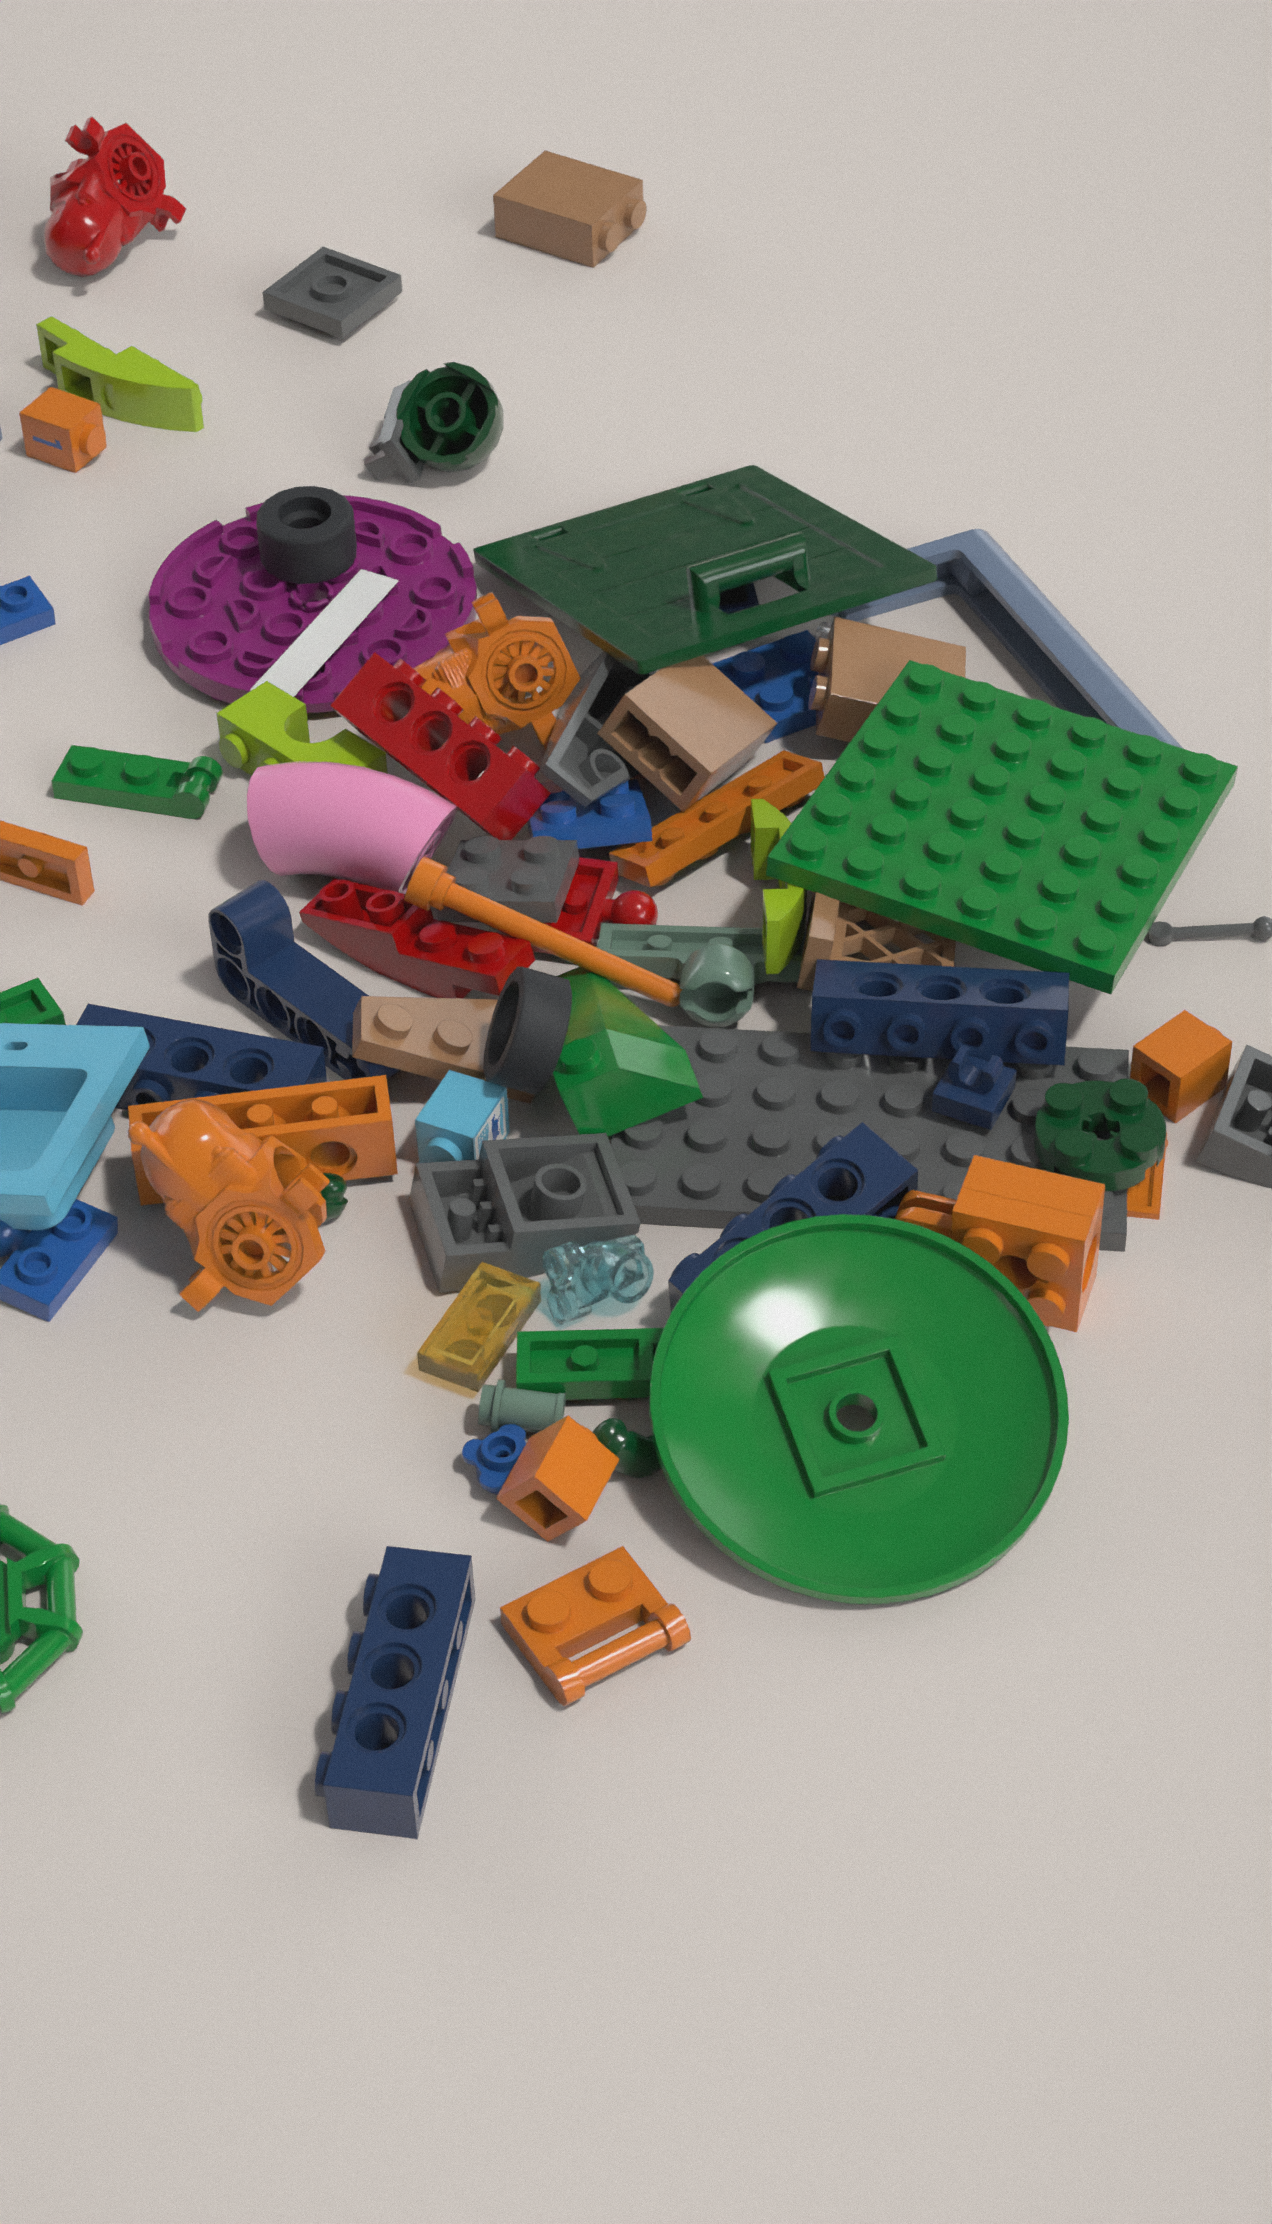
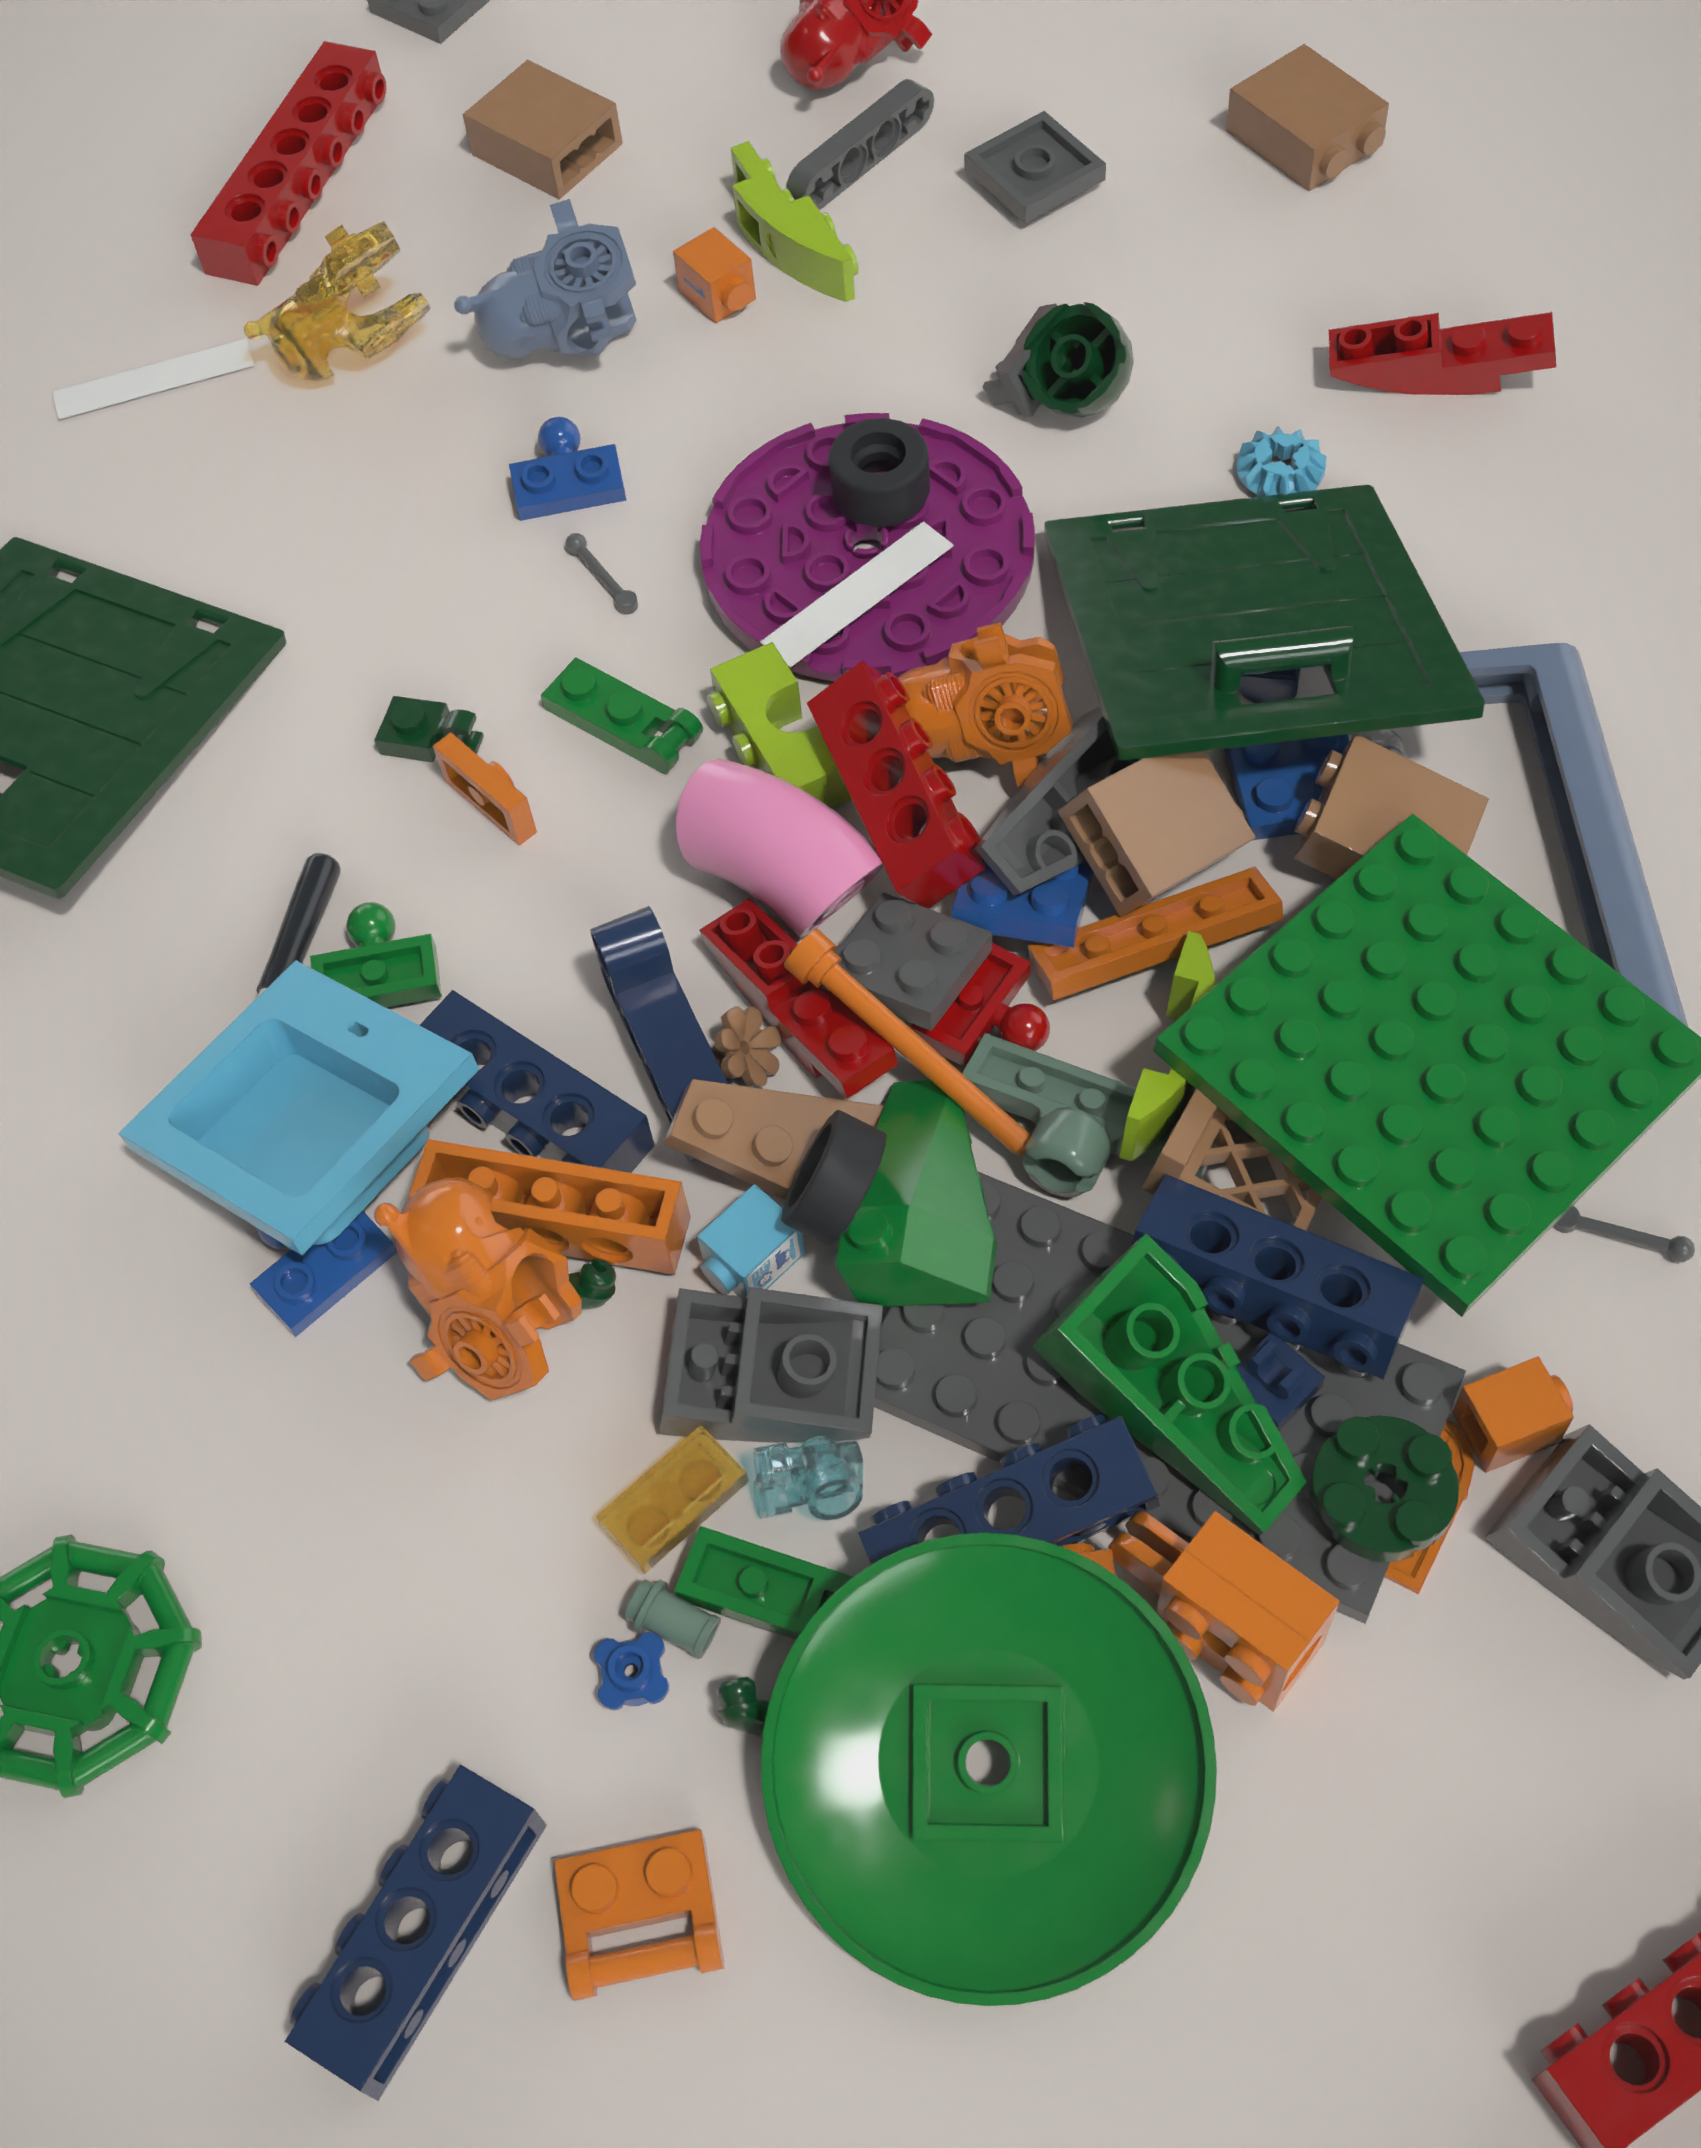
camera: 25 degrees right, 15 degrees up
(95, 698) = (625, 600): none -> dark grey hinge
(160, 300) = (895, 115): none -> dark grey beam
(379, 979) = (744, 1047): none -> medium nougat plant
(558, 1478) = (665, 1729): orange brick -> none
(664, 465) = (1269, 478): none -> medium azure gear
(759, 364) = (1422, 359): none -> red slope
(856, 1072) = (1151, 1354): none -> green wedge

